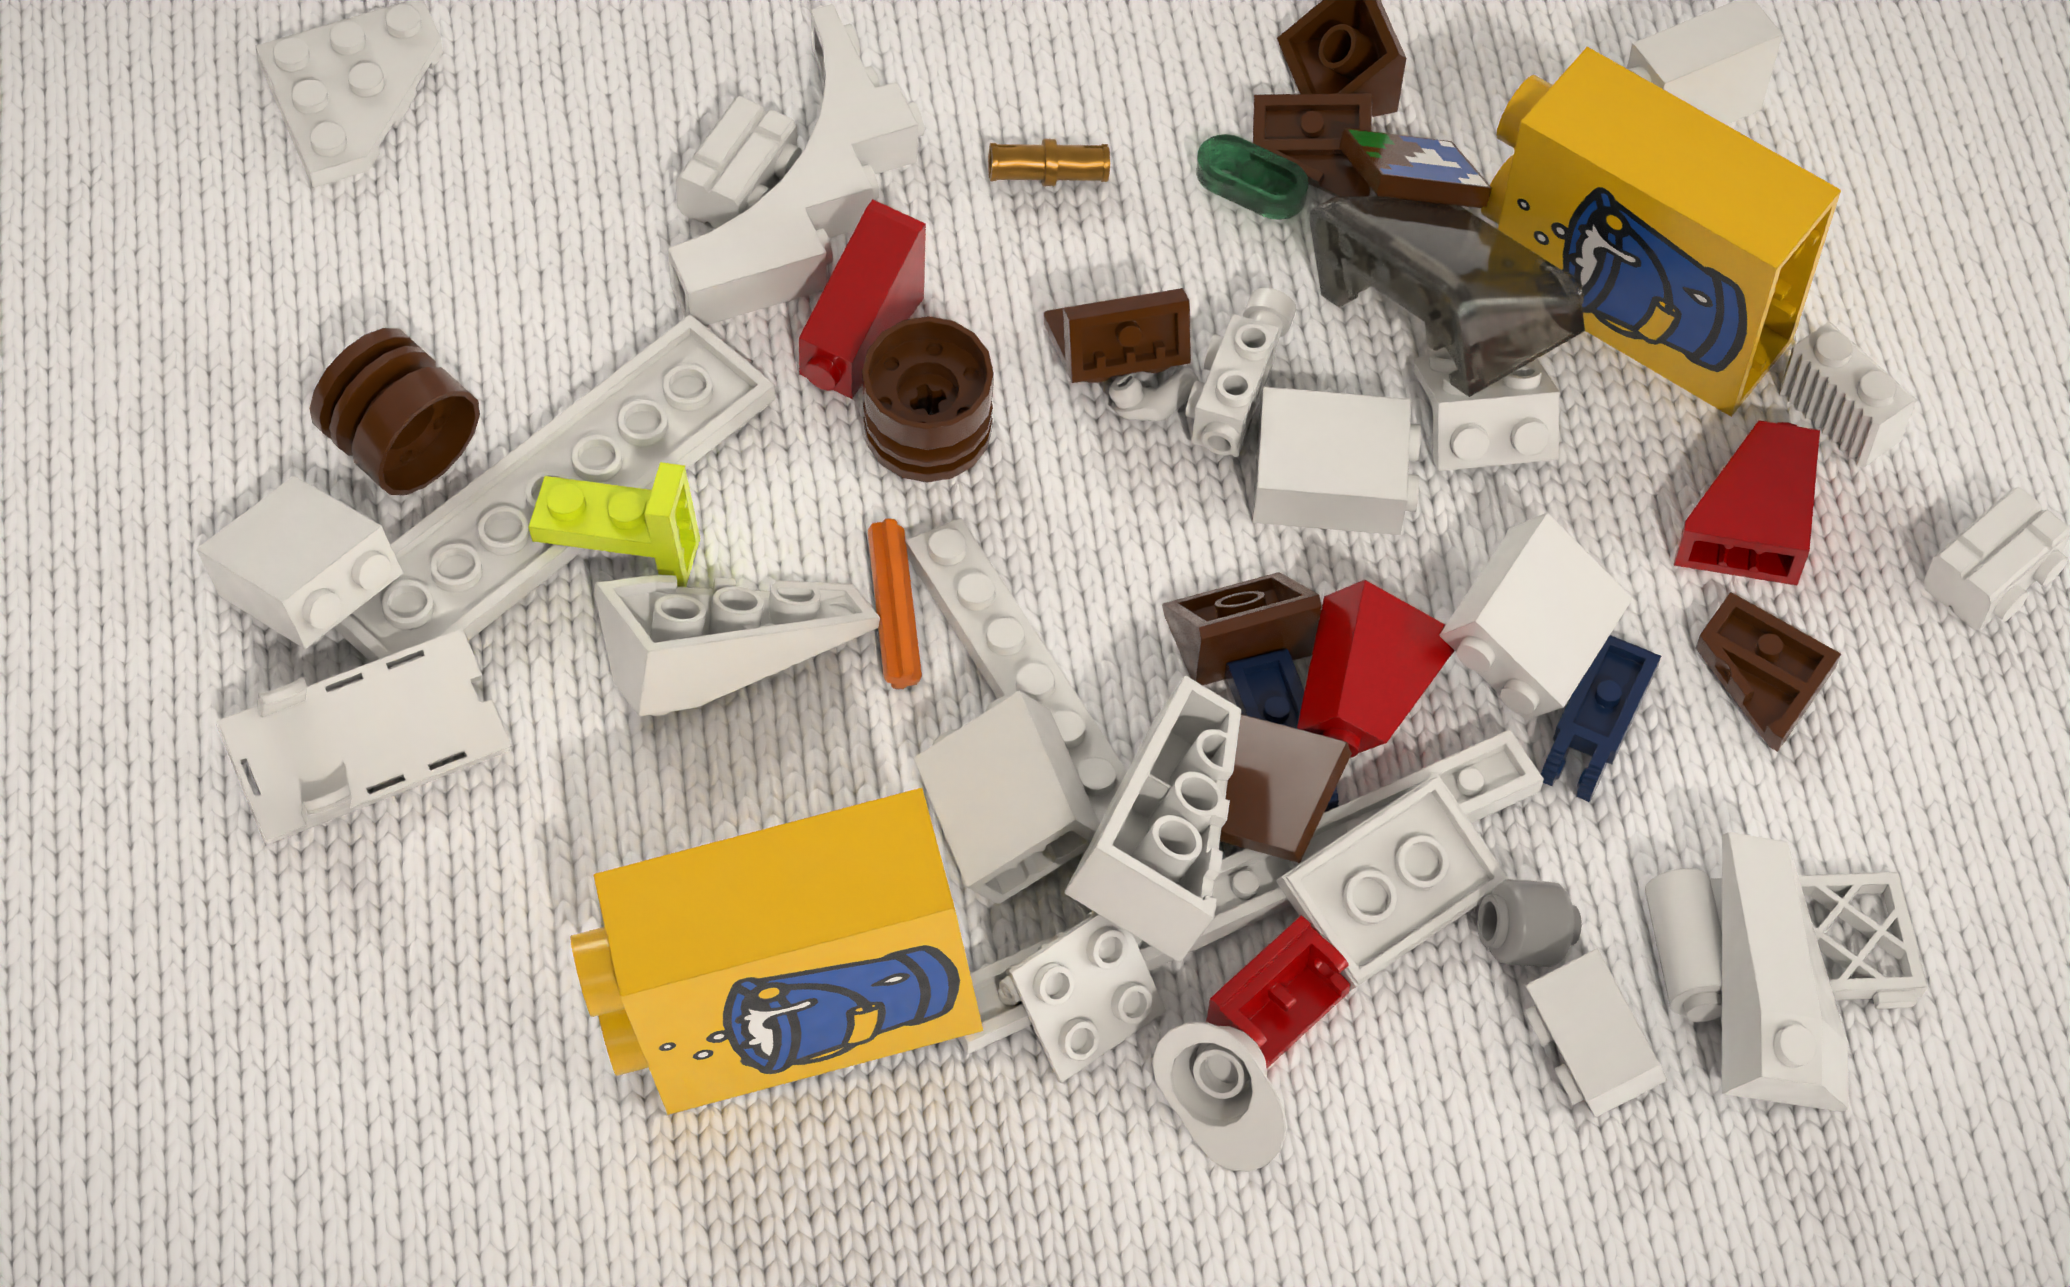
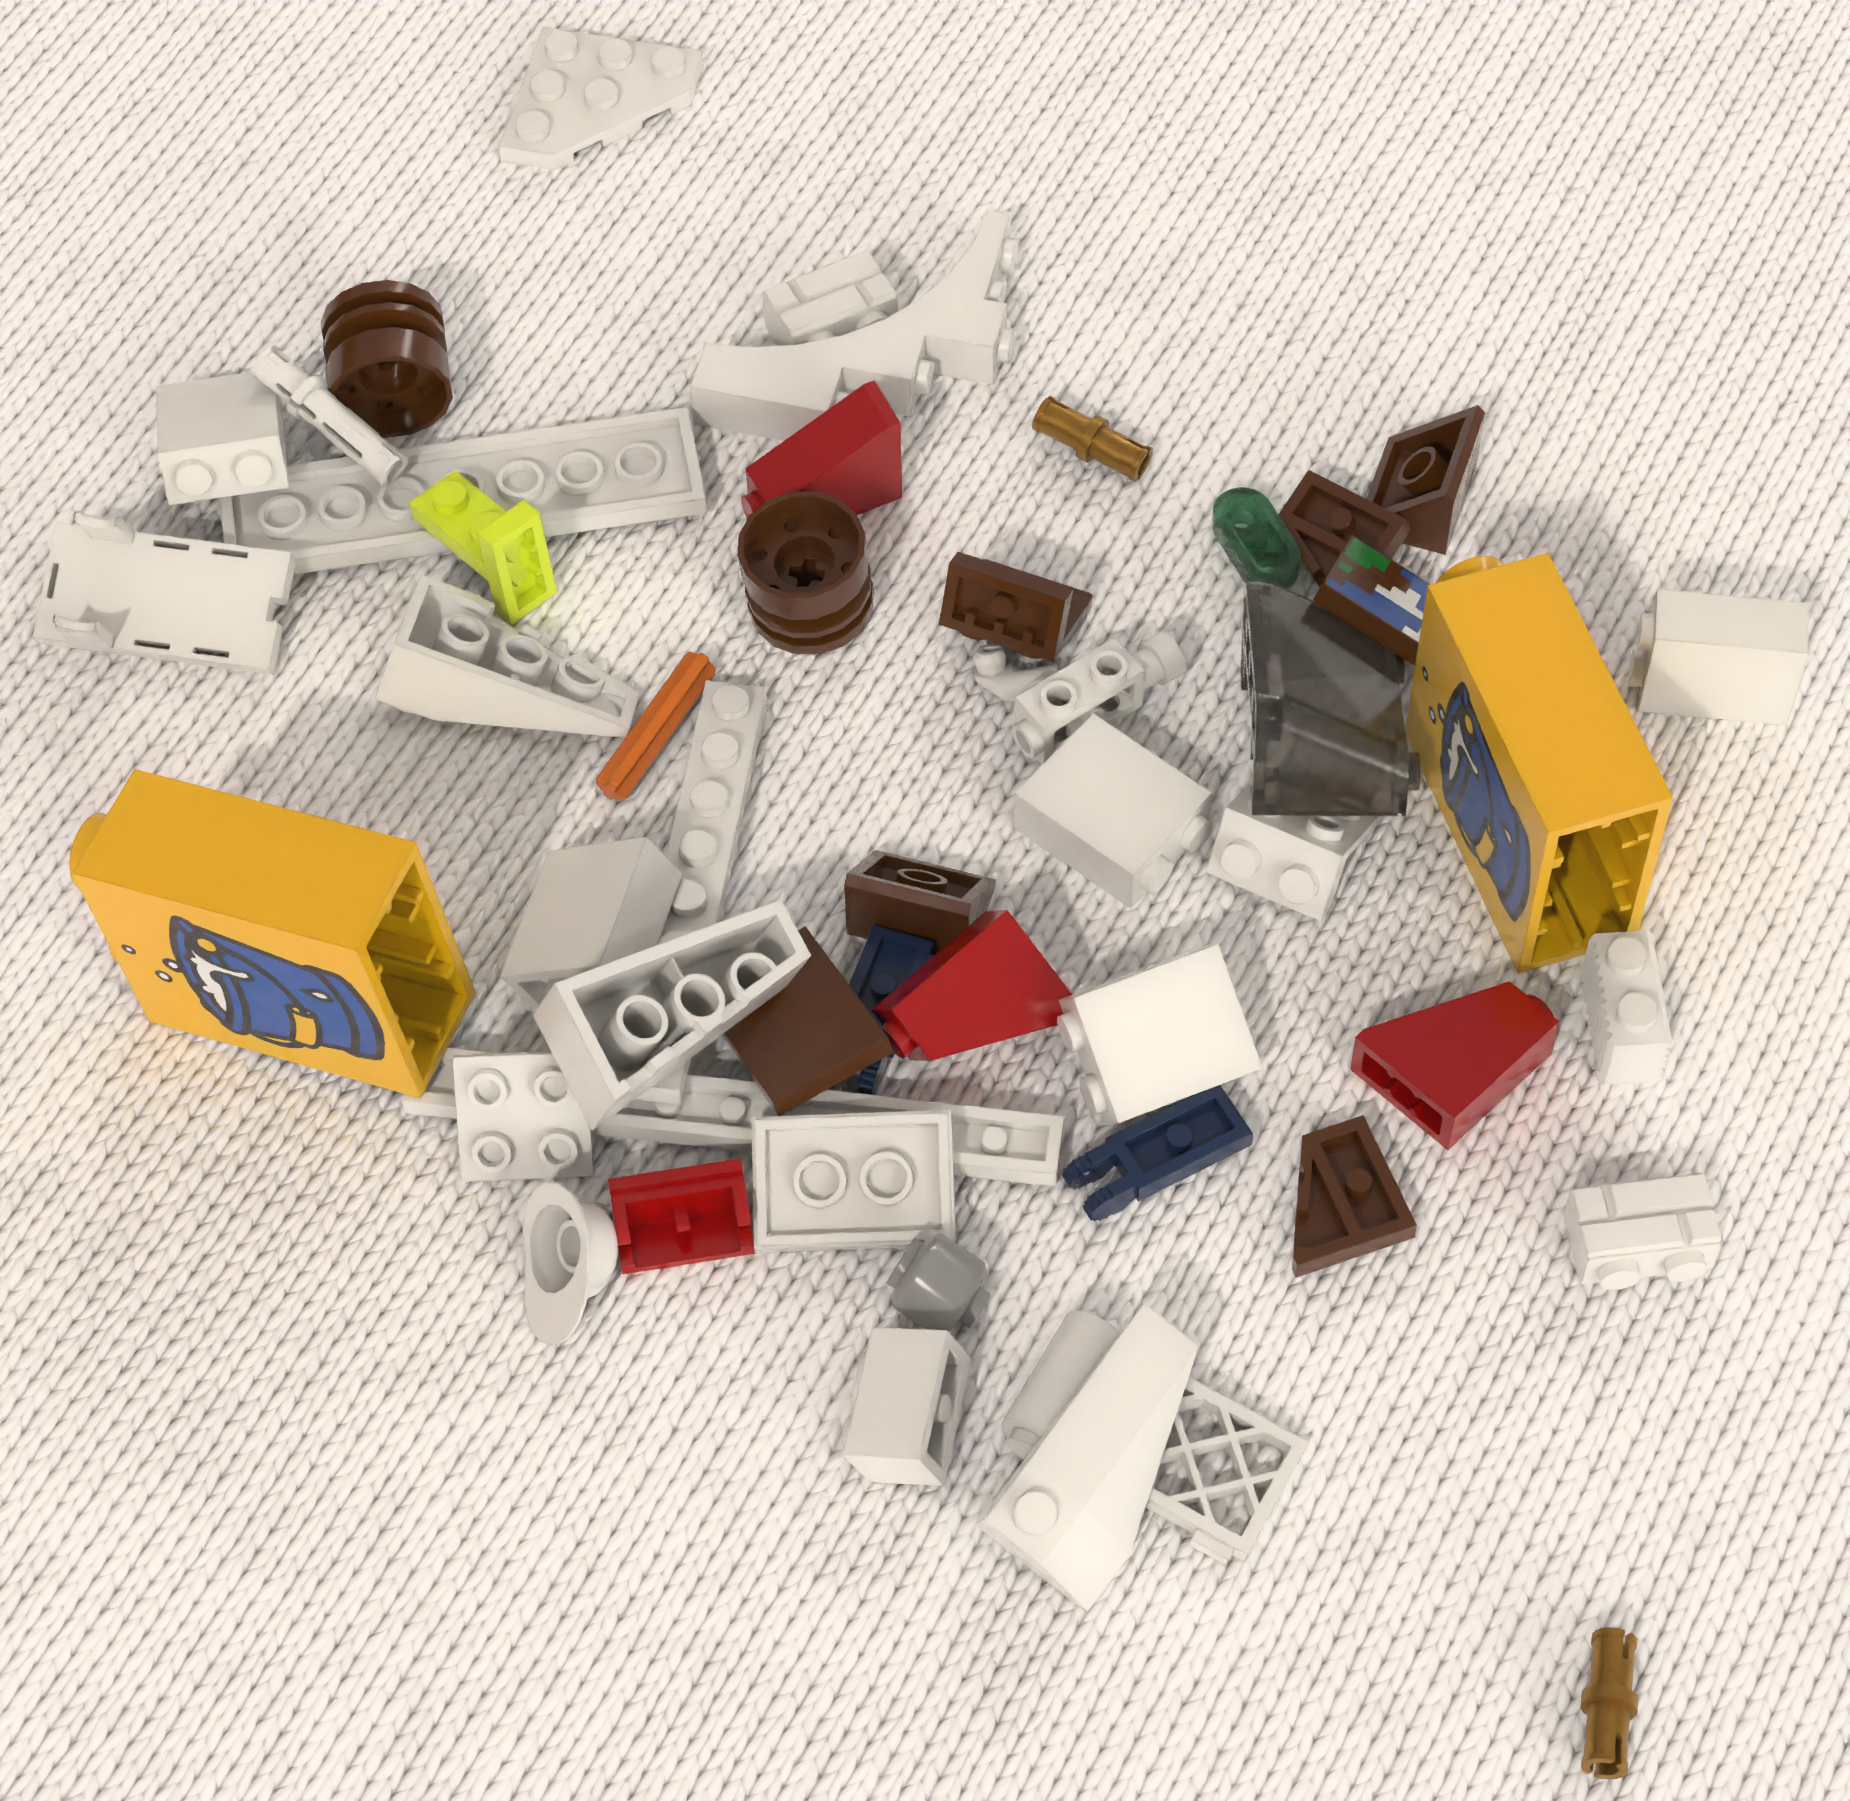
camera: 40 degrees right, 0 degrees up
(393, 487) = (310, 399): none -> white pin

